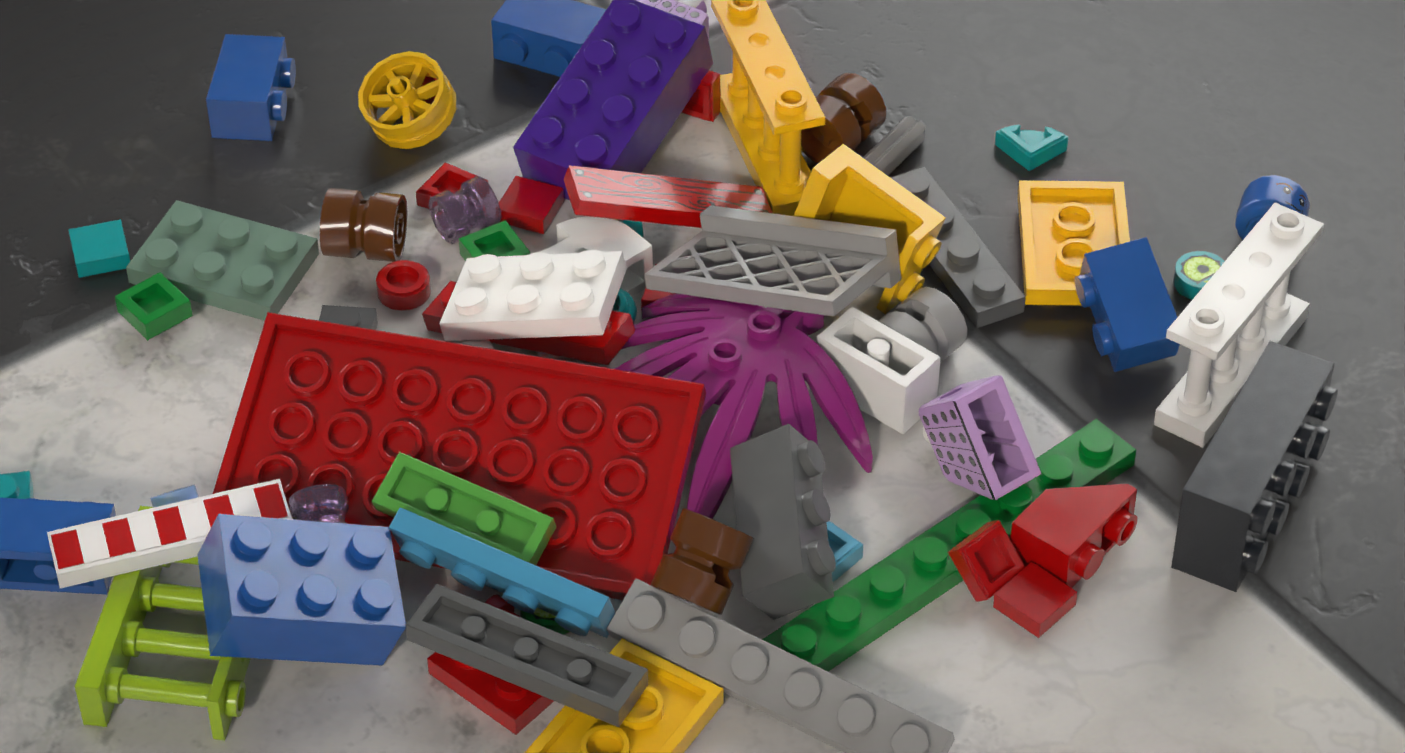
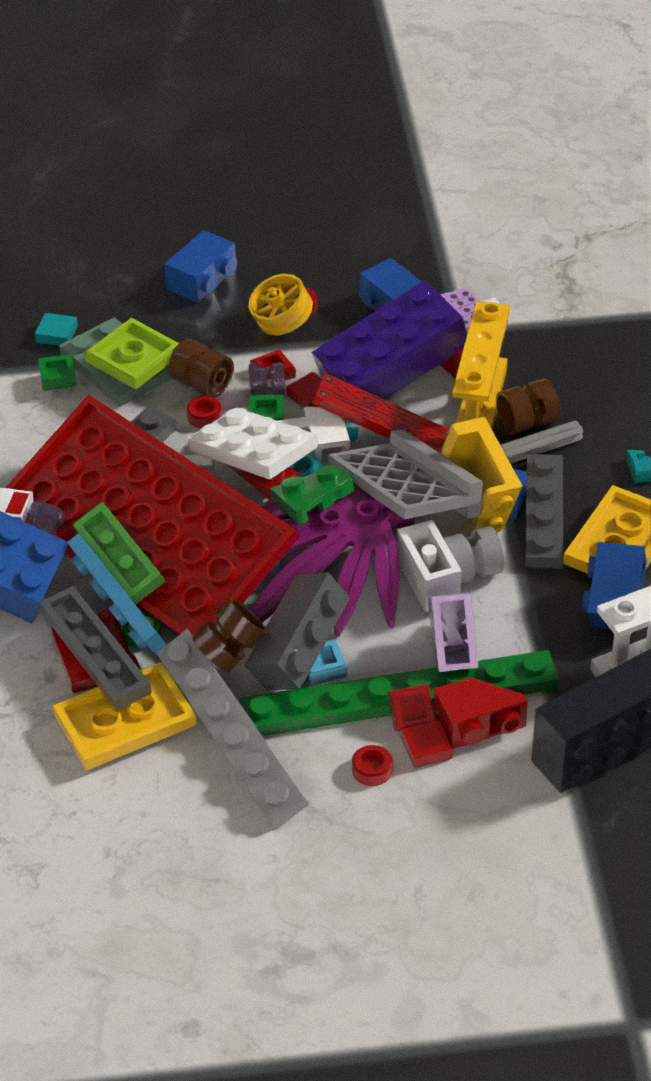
camera: 30 degrees right, 0 degrees up
(259, 238) = (132, 353): none -> lime plate
(672, 332) = (302, 494): none -> green wing
(988, 657) = (372, 765): none -> red tile

